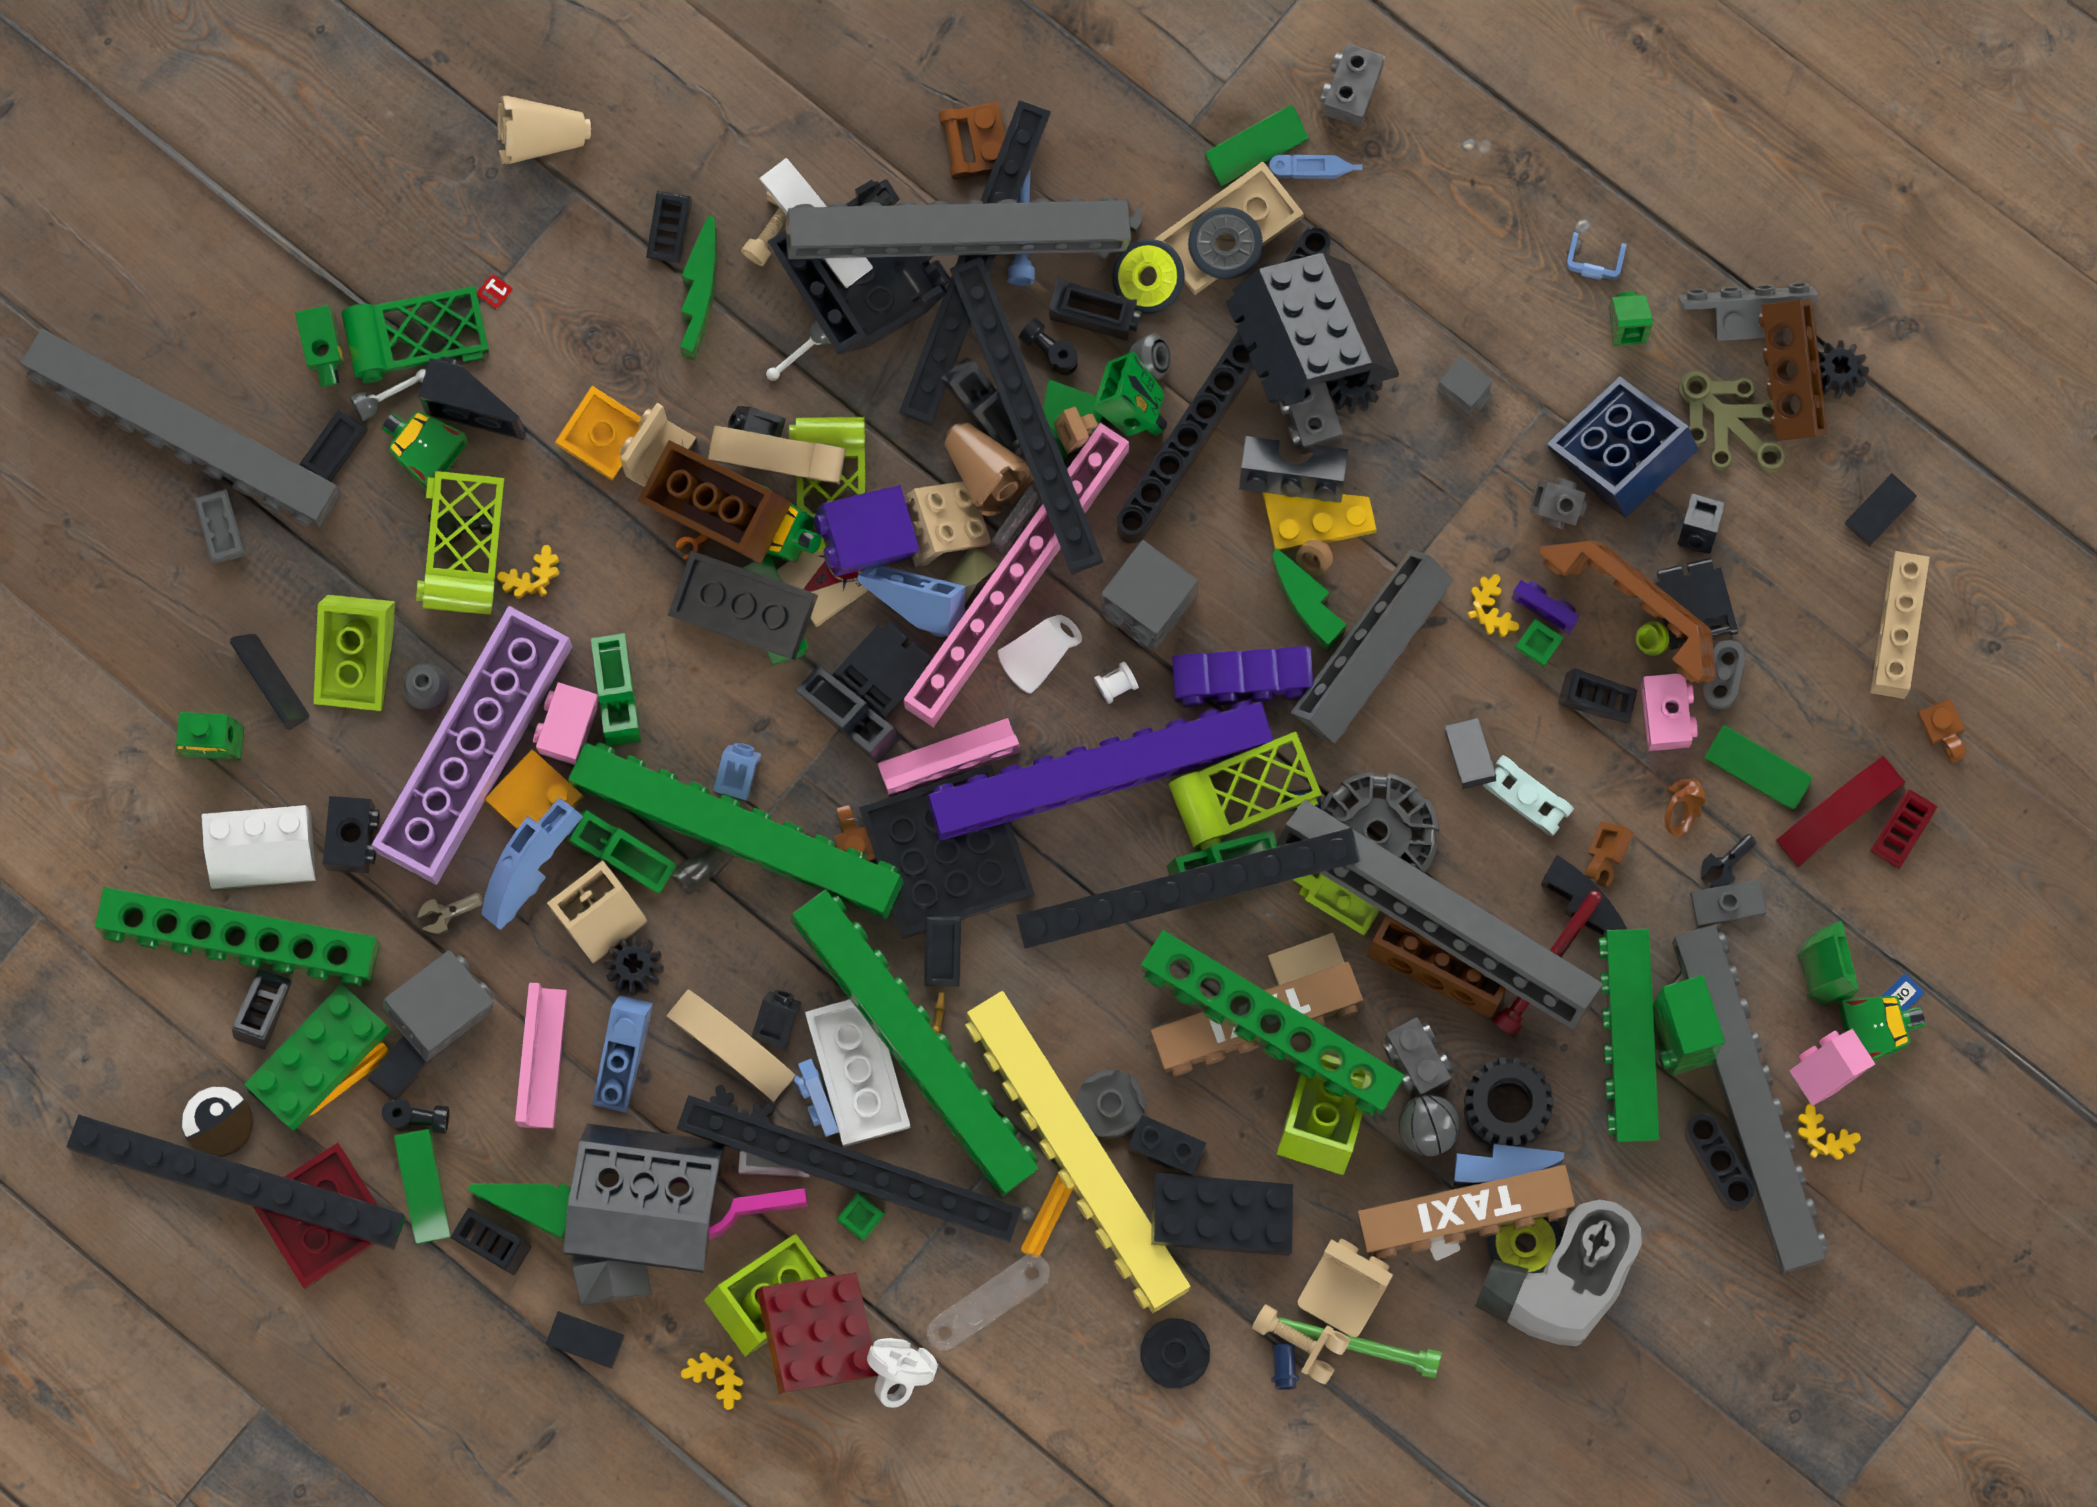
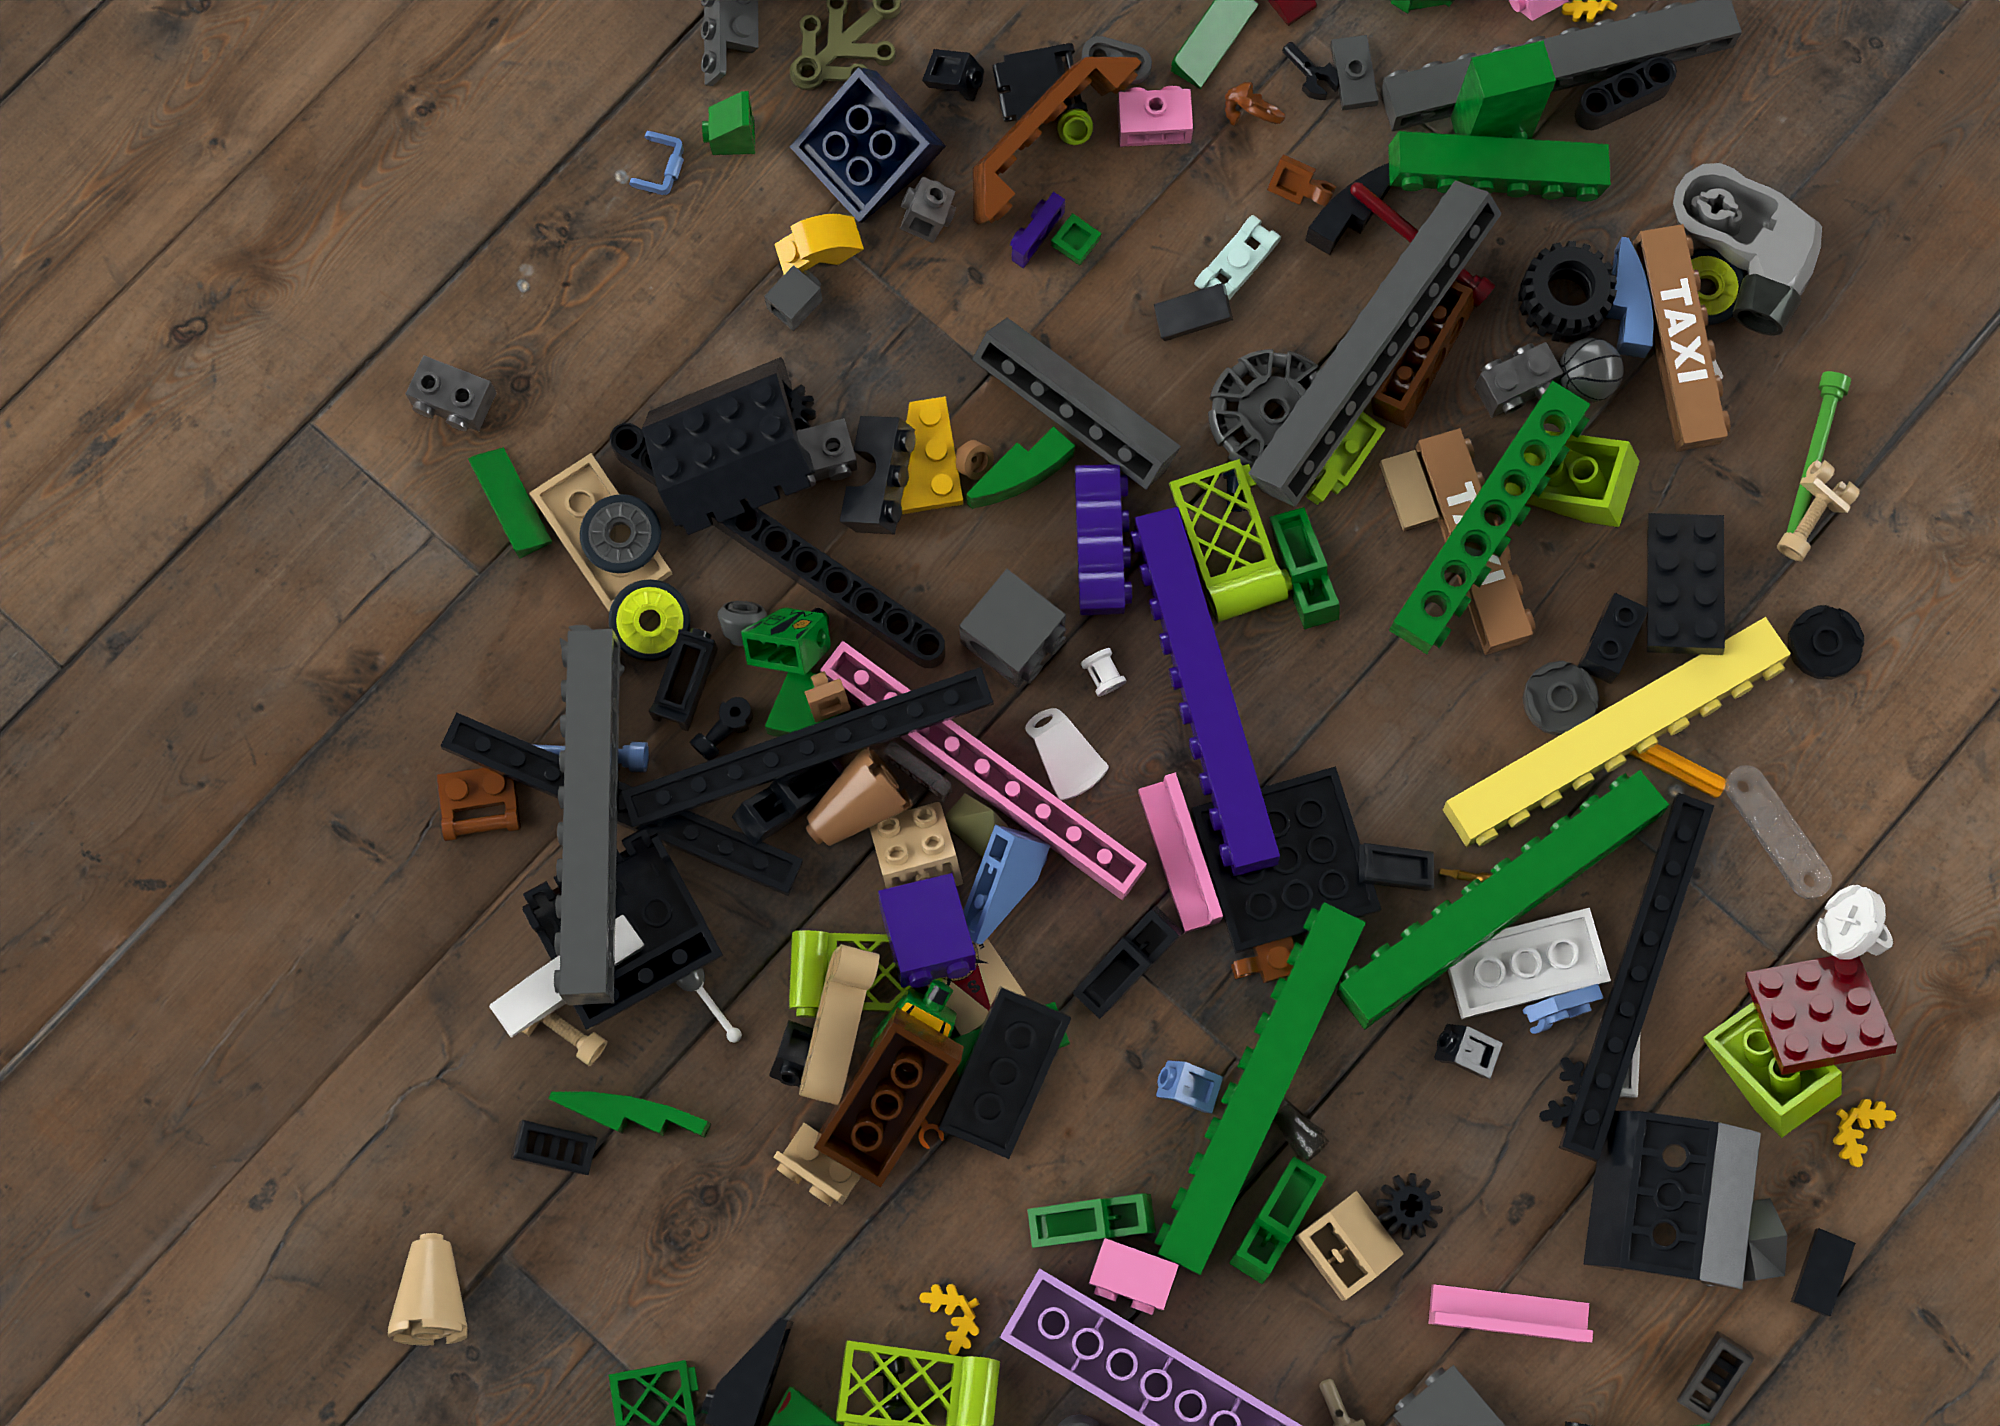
camera: 90 degrees left, 0 degrees up
(494, 291) = (615, 1352): red sticker -> none
(517, 871) = (1296, 1333): medium blue slope -> none
(531, 791) = (1212, 1317): light orange plate -> none
(535, 1204) = (1676, 1324): green slope -> none
(599, 432) = (792, 1229): light orange plate -> none
(622, 1052) = (1504, 1222): medium blue slope -> none
(731, 1045) = (1495, 1103): tan slope -> none
(757, 1205) = (1675, 1070): dark pink piece -> none
(860, 1217) = (1684, 966): green tile -> none
(884, 668) = (1078, 919): black plate -> none
(1188, 888) = (1341, 598): black plate -> none
(1284, 1367) = (1841, 530): dark blue pin -> none
(1310, 166) = (536, 446): medium blue piece -> none
(1345, 1288) = (1758, 465): tan bracket -> none
(1490, 620) = (1023, 295): yellow animal -> none
(1519, 406) = (819, 239): none -> yellow brick
(1580, 703) = (1128, 208): black slope -> none

